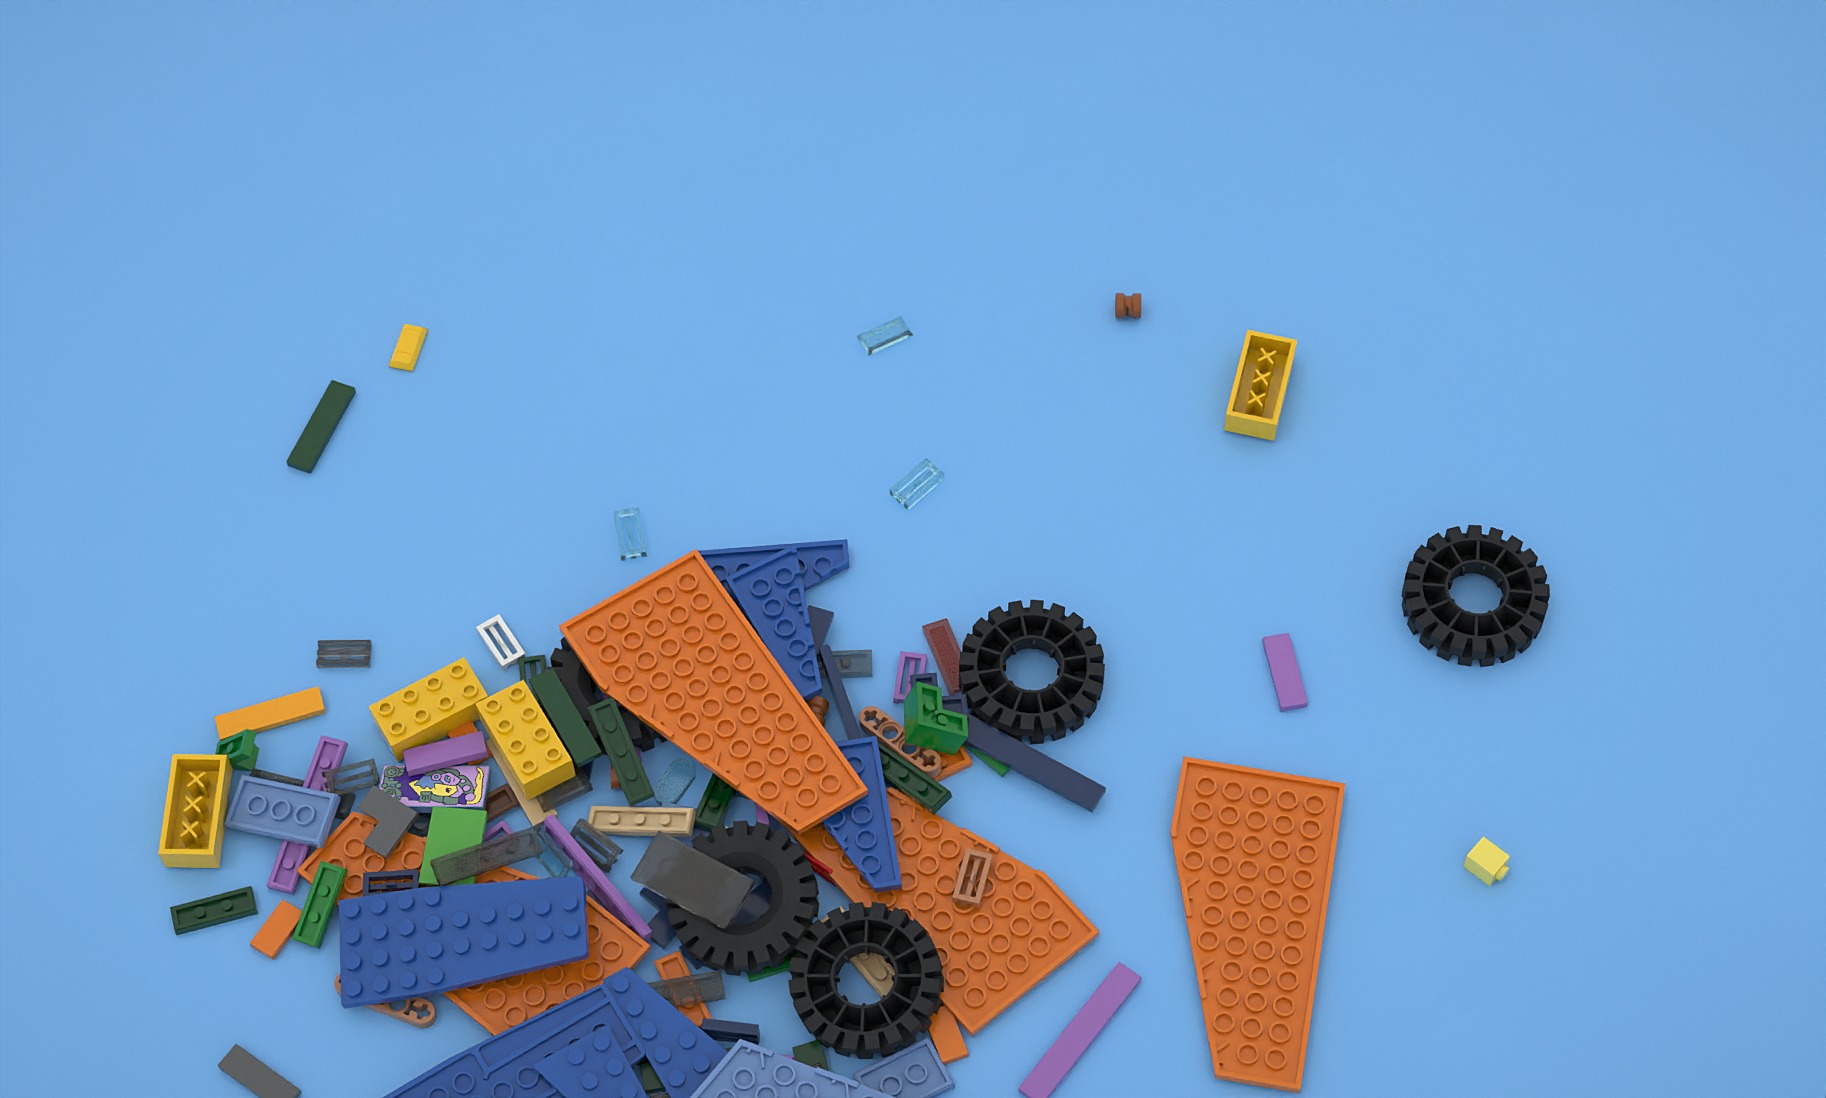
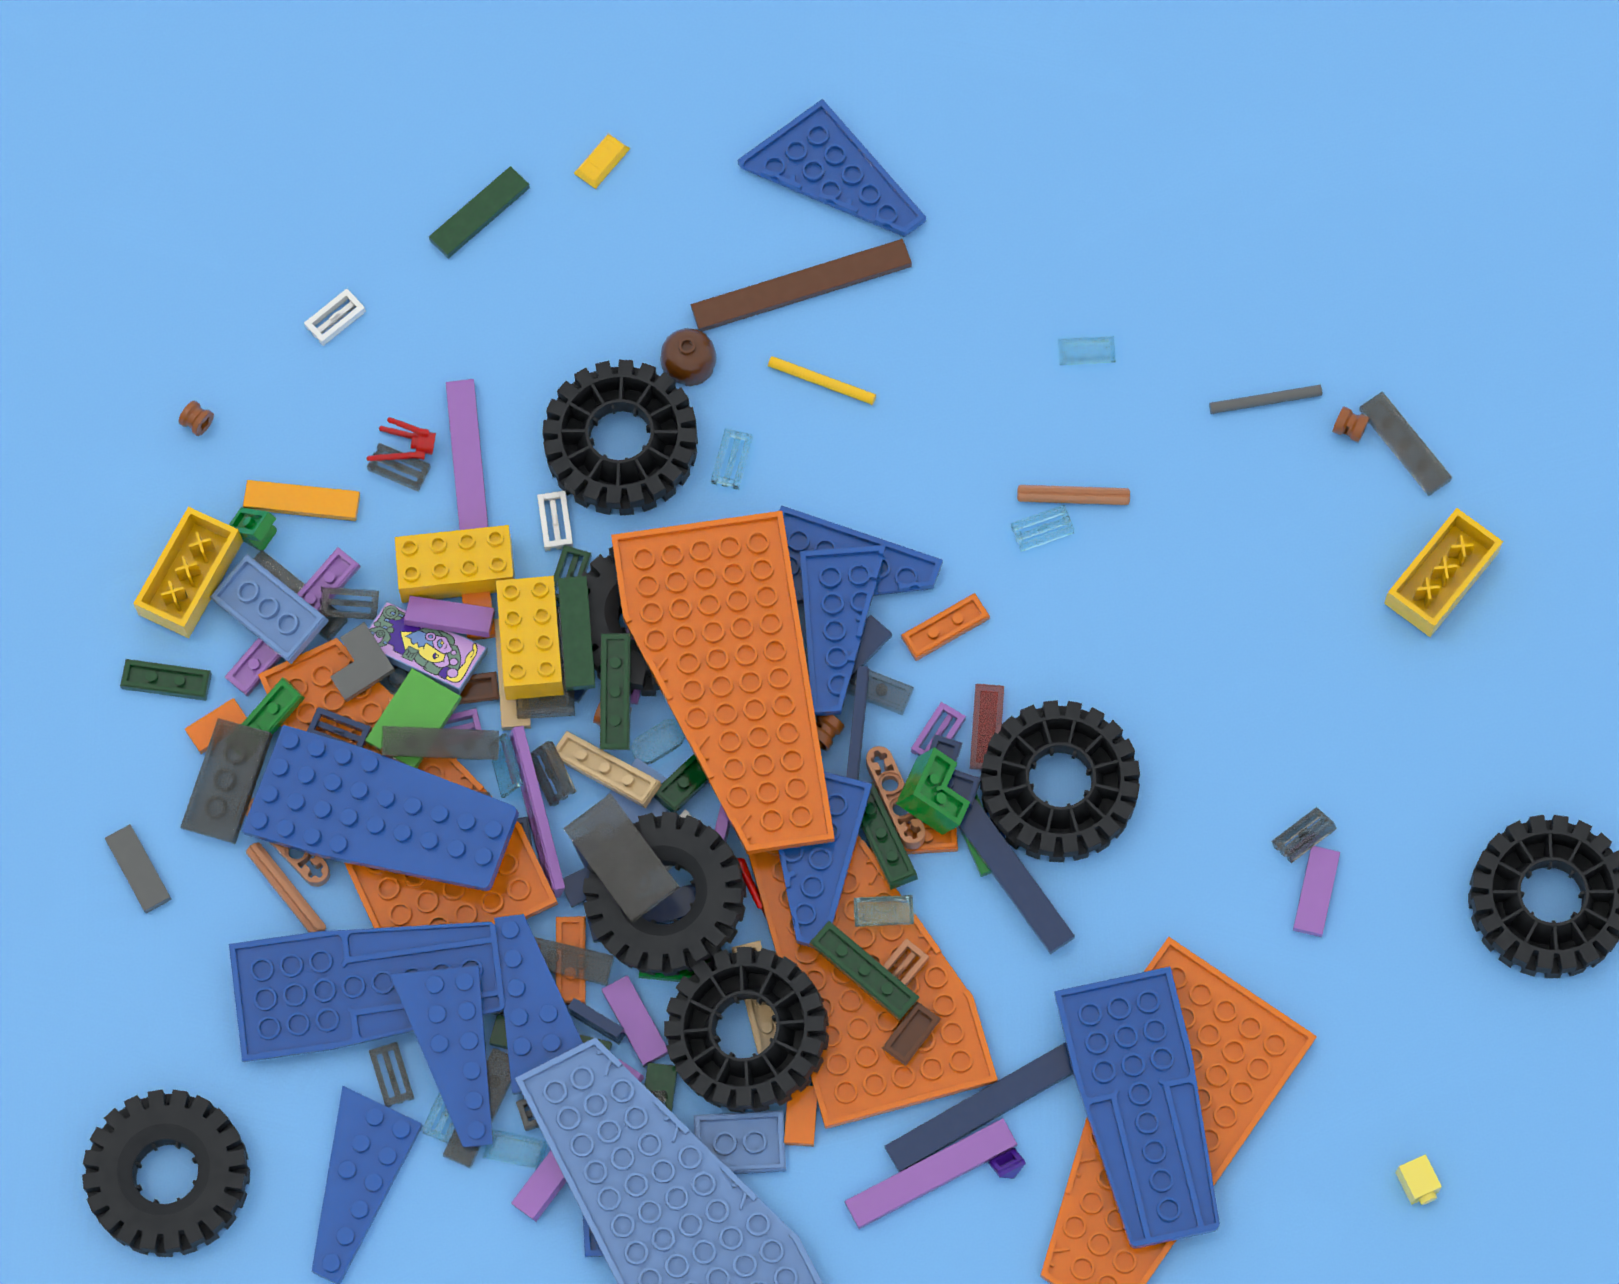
camera: 25 degrees right, 10 degrees up
(145, 684) = (196, 418): none -> dark orange wheel
(225, 550) = (328, 309): none -> white tile
(308, 970) = (226, 781): none -> clear smoke tile
(355, 624) = (421, 438): none -> red plant
(398, 618) = (466, 454): none -> medium lavender tile
(399, 1038) = (285, 888): none -> nougat axle
(535, 589) = (630, 481): none -> black tyre
(554, 468) = (688, 356): none -> reddish brown cylinder
(604, 276) = (829, 164): none -> blue wing
(622, 378) = (801, 285): none -> reddish brown tile
(674, 443) = (822, 380): none -> yellow bar
(772, 1023) = (635, 1021): none -> medium lavender tile
(874, 592) = (945, 626): none -> orange tile
(929, 448) = (1073, 494): none -> nougat axle
(936, 834) = (883, 911): none -> clear light blue tile
(944, 888) = (864, 970): none -> dark green tile
(1008, 923) = (911, 1033): none -> reddish brown tile
(1049, 315) = (1265, 399): none -> dark grey bar
(1103, 952) = (980, 1108): none -> dark blue tile
(1142, 997) = (1007, 1164): none -> dark purple slope
(1179, 304) = (1405, 443): none -> clear smoke tile
(1231, 896) = (1142, 1103): none -> blue wing
(1255, 632) = (1306, 837): none -> clear smoke tile

